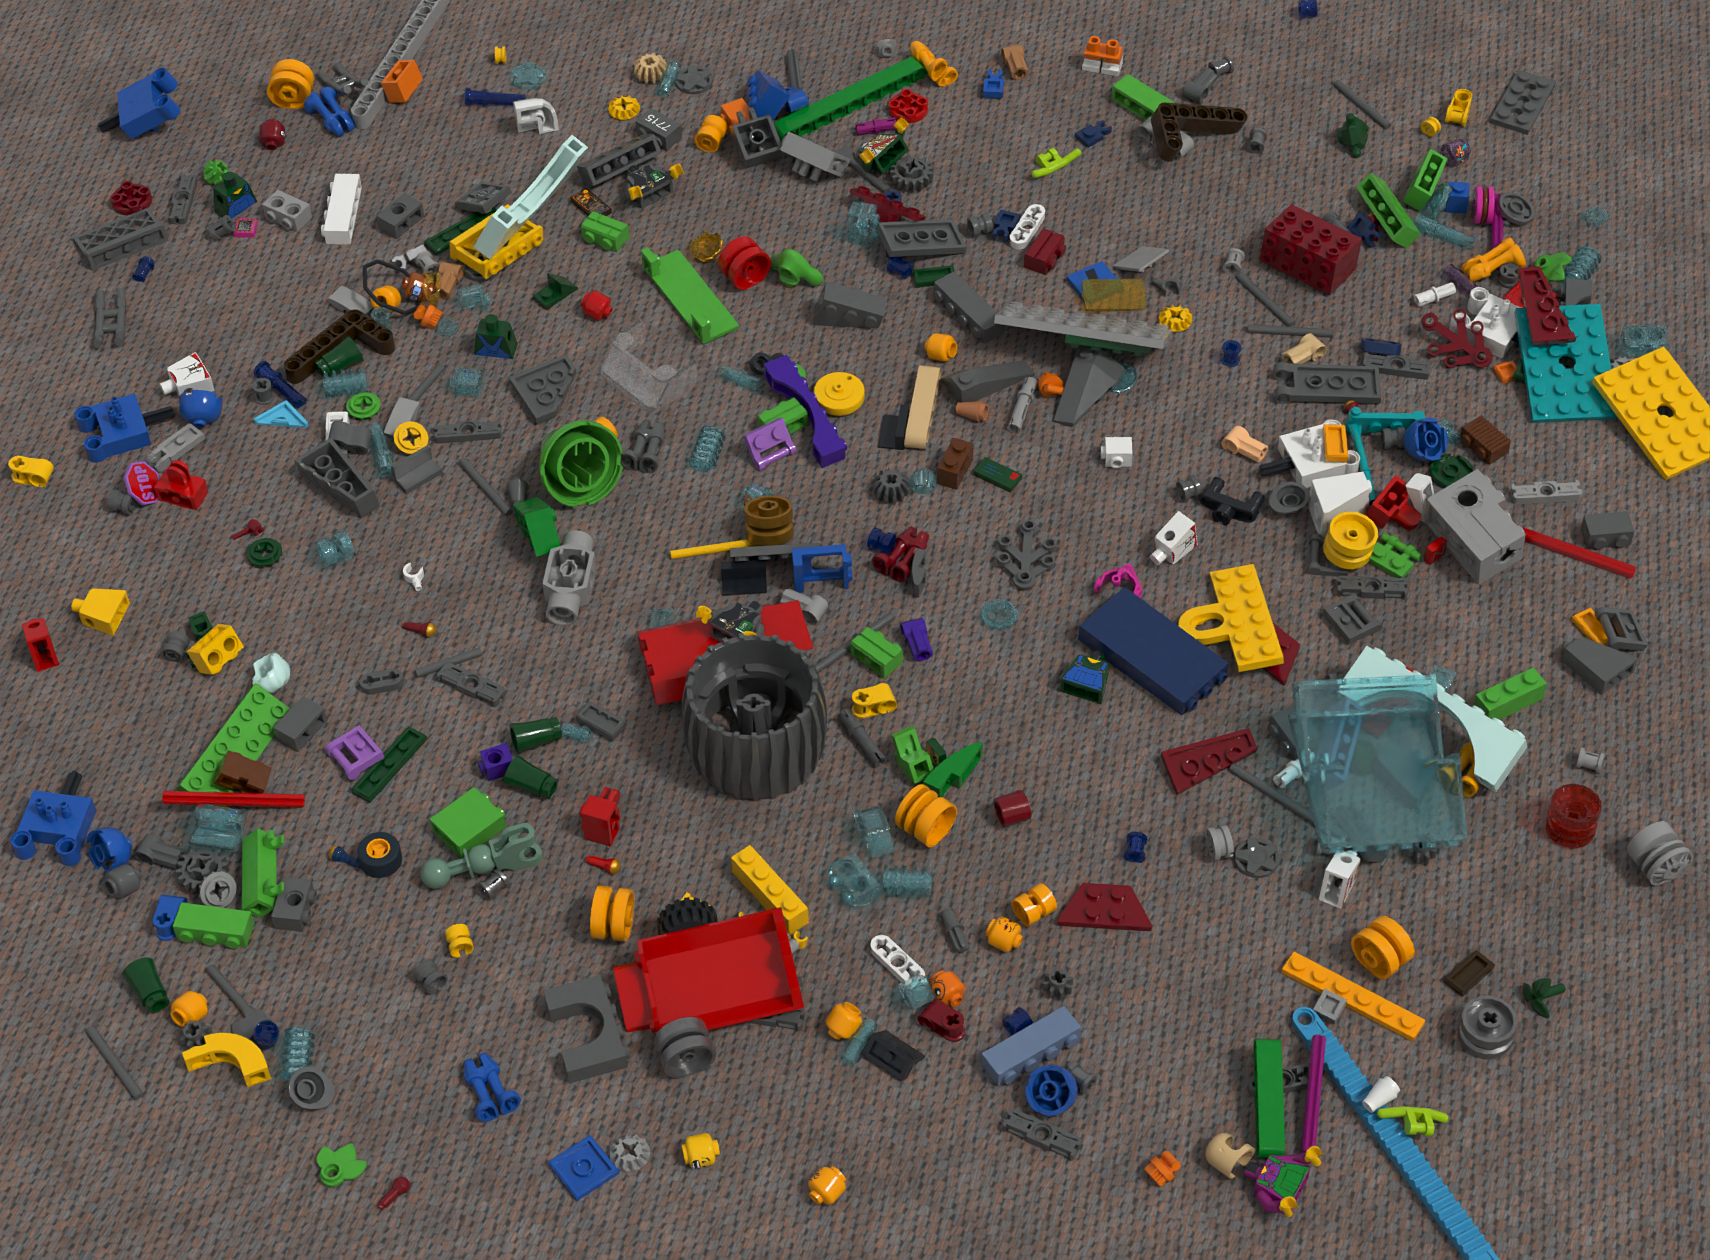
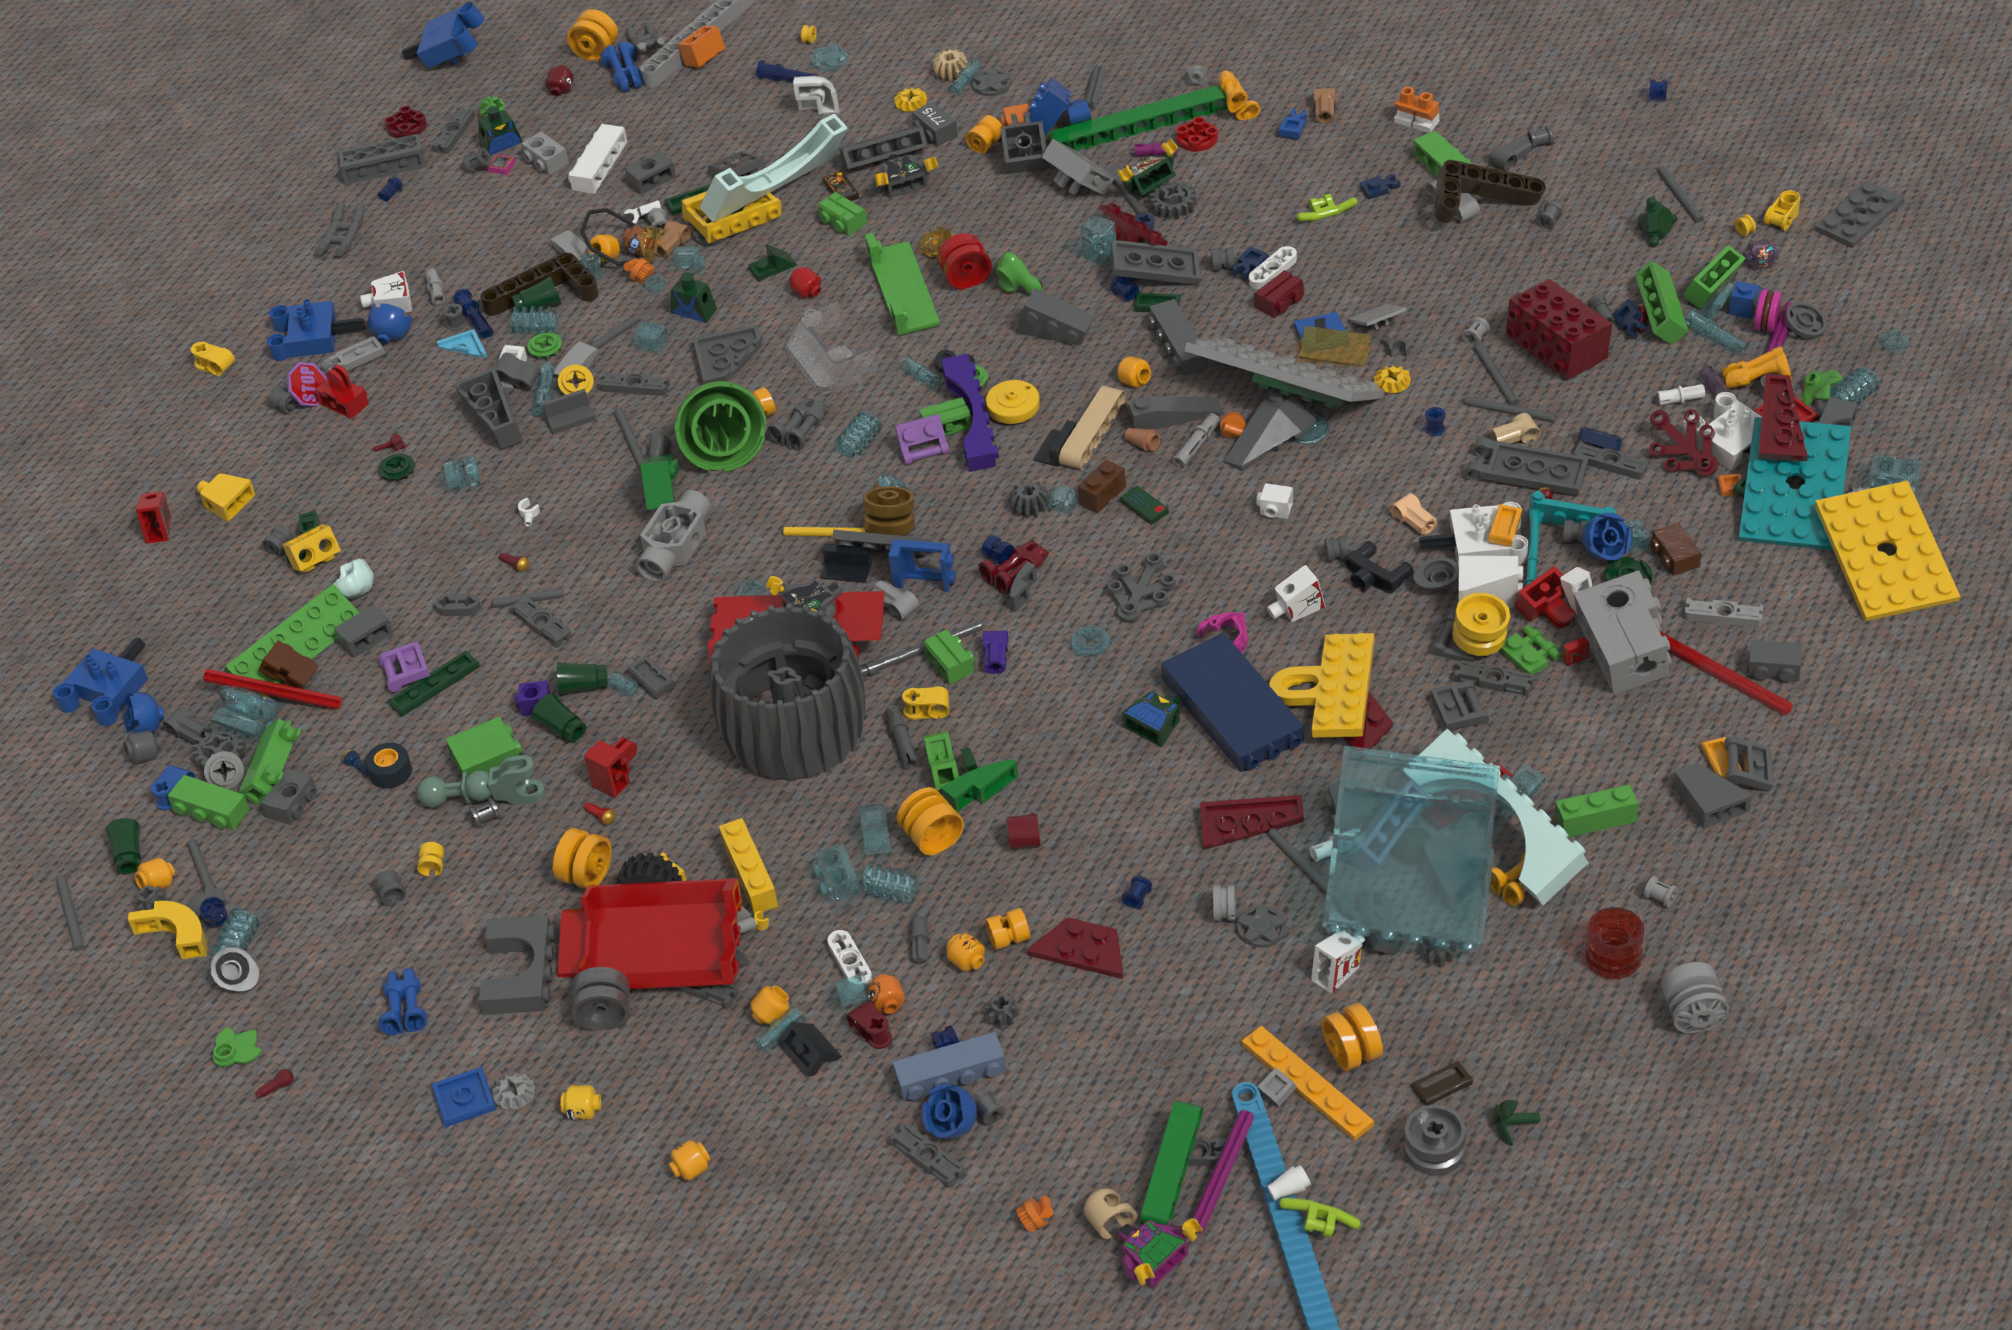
camera: 20 degrees right, 5 degrees down
(229, 362) = (435, 286): none -> light grey pin

